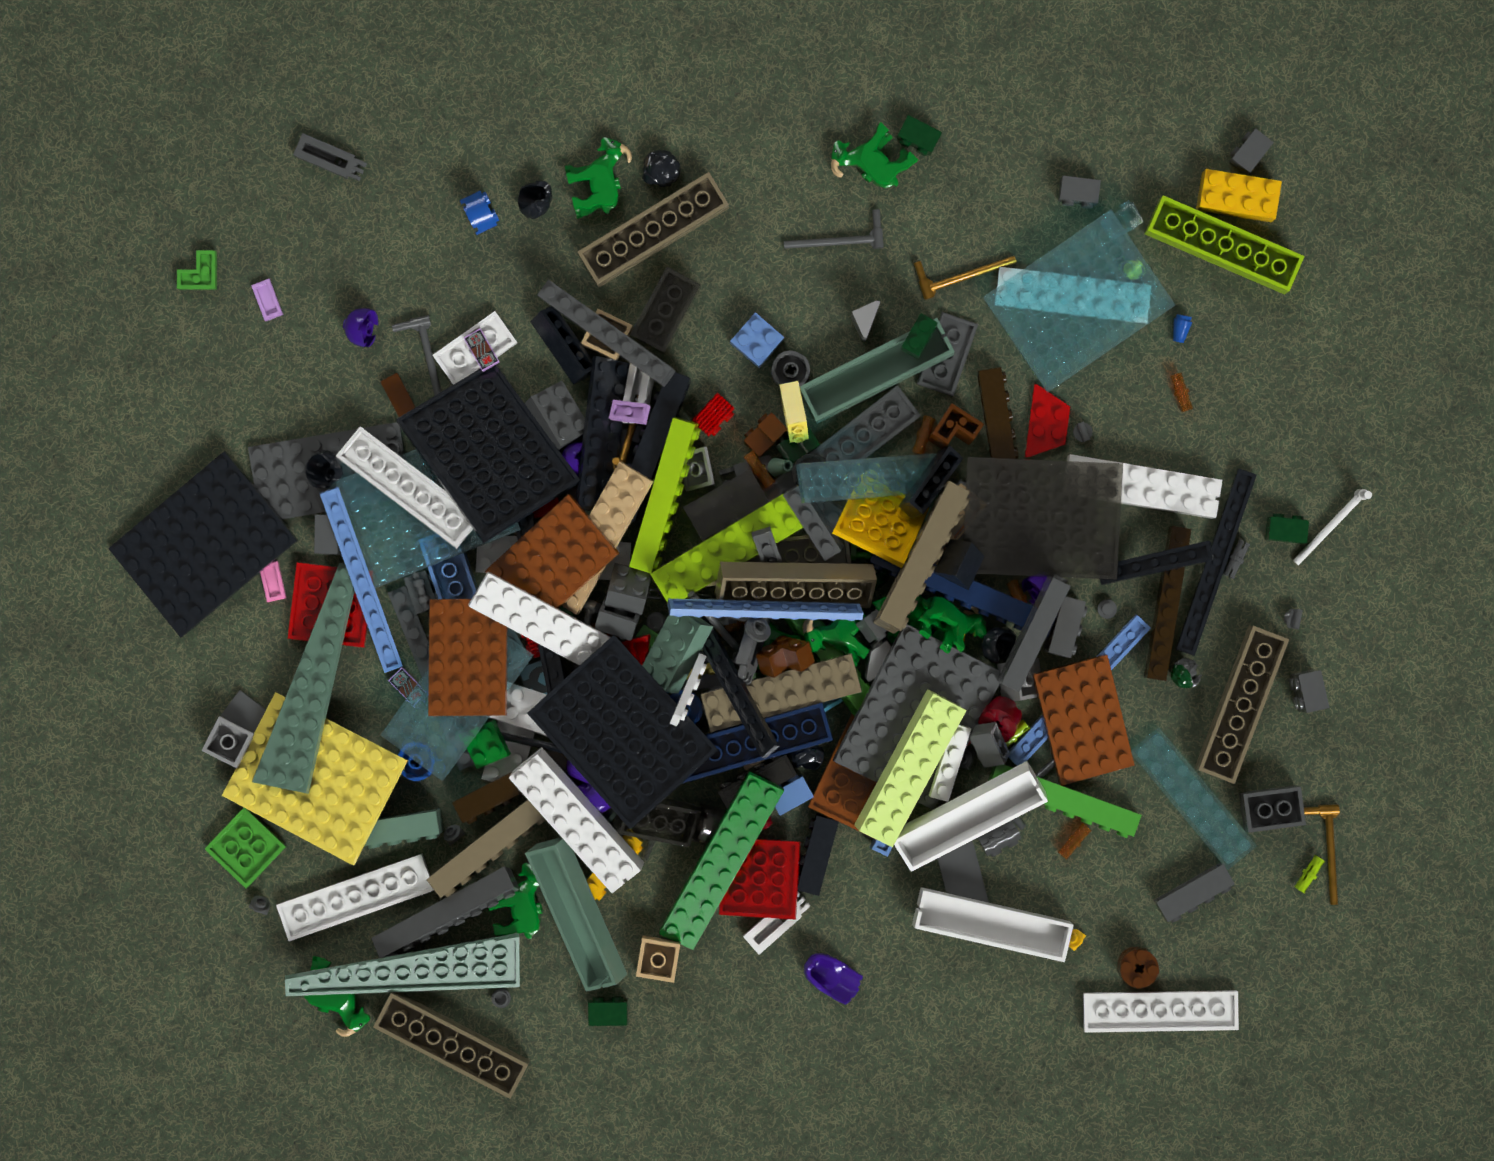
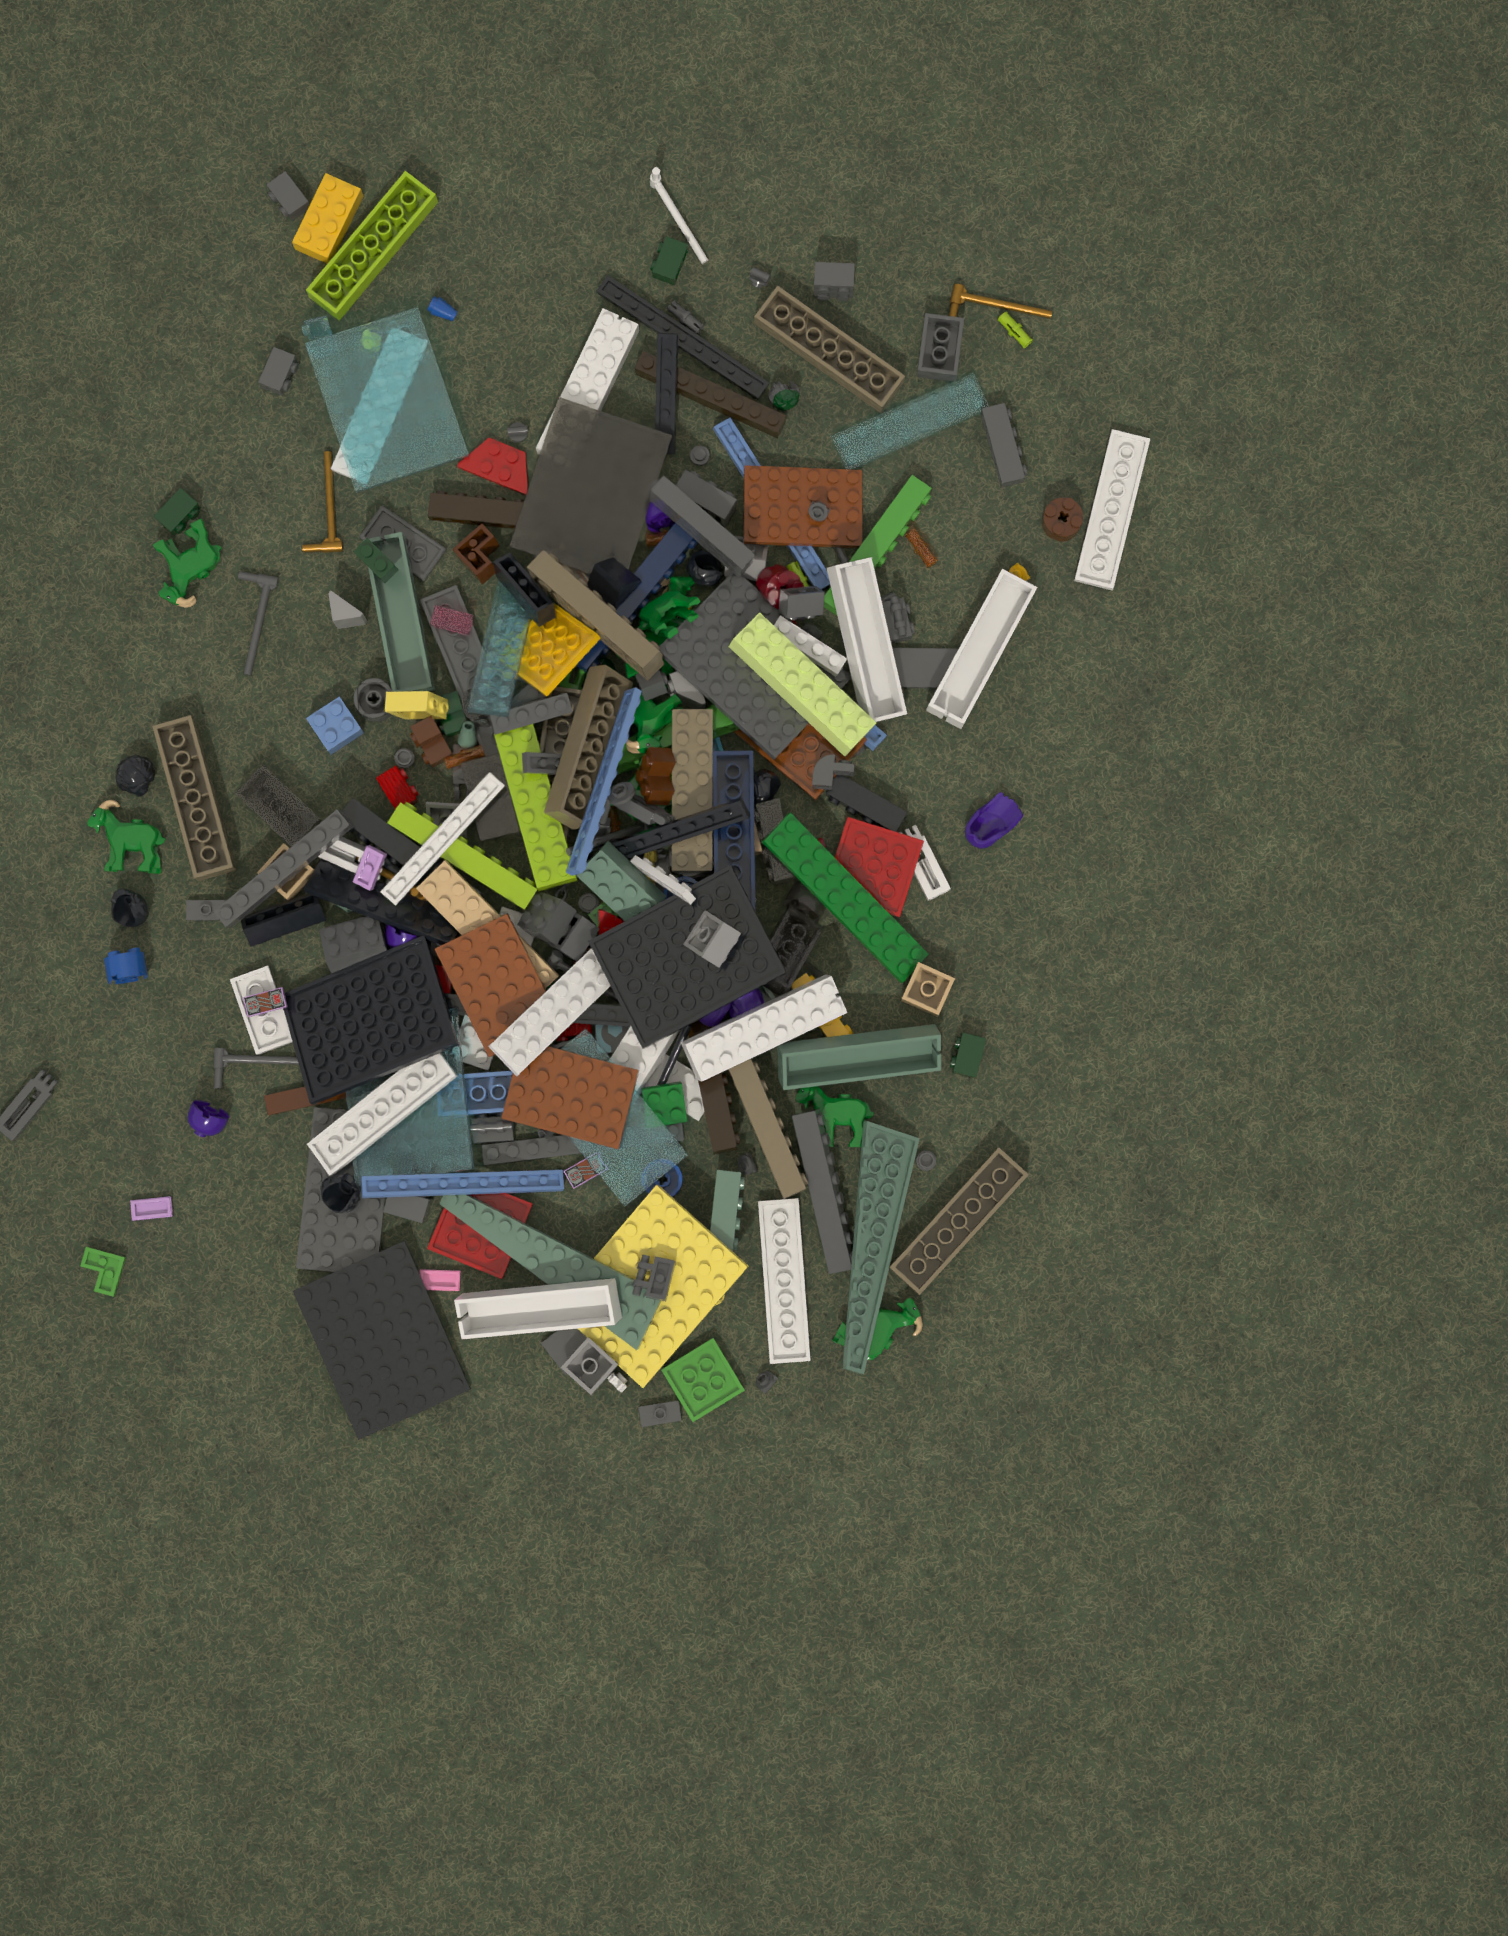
camera: 75 degrees left, 5 degrees down
(205, 816) = (660, 1413): none -> dark grey plate
(222, 771) = (618, 1381): none -> white plate
(264, 682) = (538, 1308): none -> white piece
(319, 787) = (659, 1280): none -> dark grey plate
(553, 268) = (202, 910): none -> dark grey plate
(642, 751) = (712, 938): none -> light grey slope
(672, 473) = (442, 838): none -> white tile
(745, 413) = (404, 758): none -> dark grey plate
(795, 793) = (798, 805): medium blue brick -> none
(836, 810) = (826, 769): none -> dark grey brick
(885, 421) = (452, 620): none -> clear pink plate
(923, 434) = (476, 588): clear orange pin -> none
(1081, 736) = (818, 511): none -> dark grey plate
(1181, 392) = (505, 326): clear orange pin -> none

